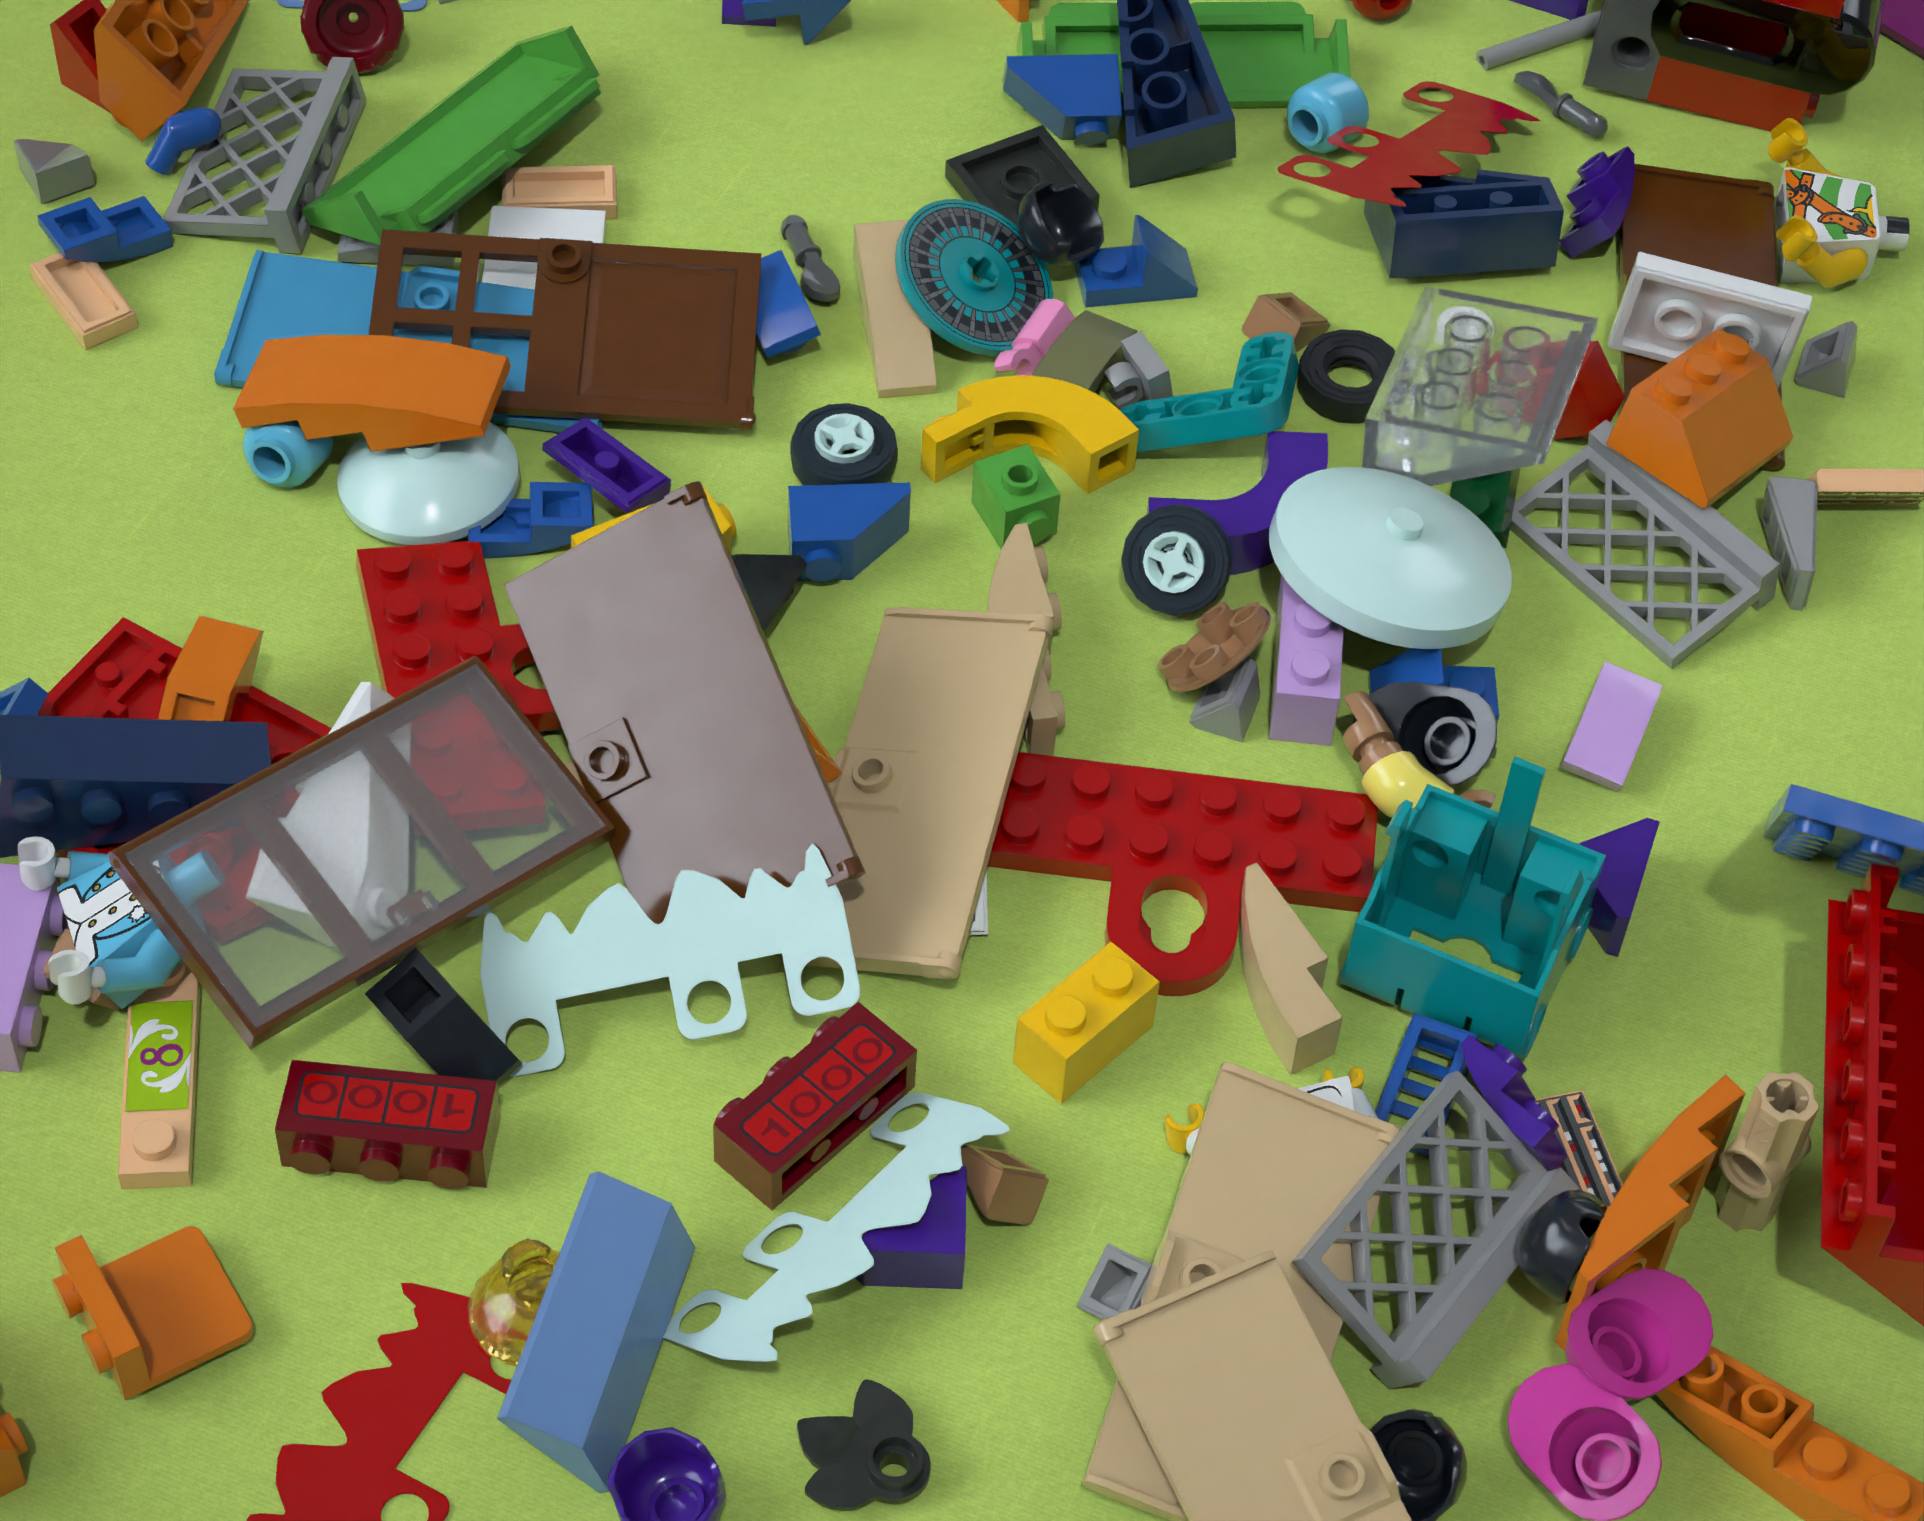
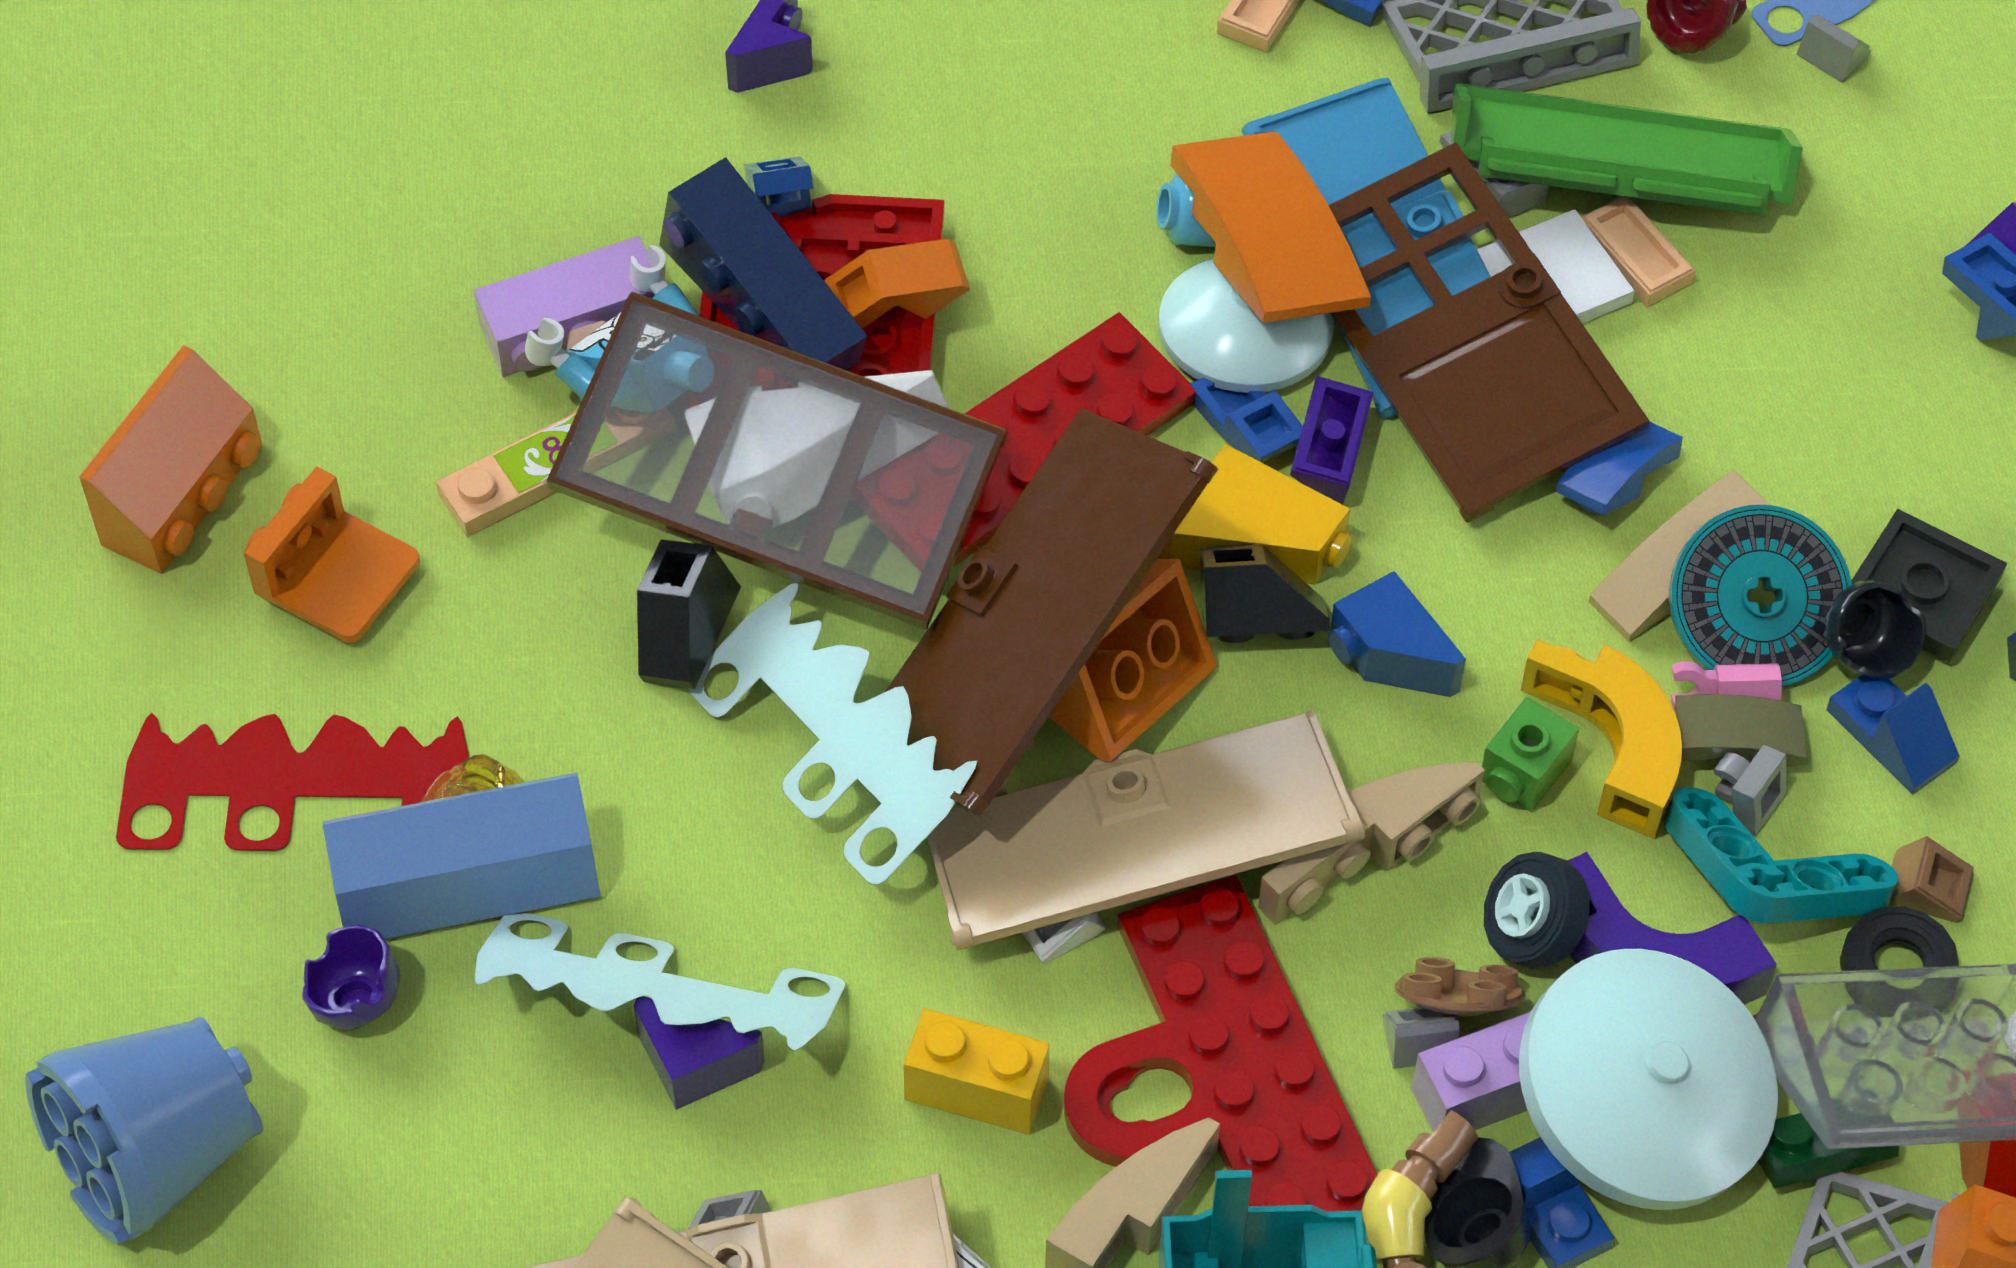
camera: 65 degrees right, 5 degrees up
(388, 1124) = (577, 629): dark red brick -> none
(813, 1104) = (773, 909): dark red brick -> none
(817, 278) = (1690, 481): dark grey piece -> none
(843, 446) = (1512, 594): black wheel -> none
(858, 1447) = (473, 1100): pearl dark grey plate -> none
(1003, 1184) = (778, 1084): medium nougat slope -> none

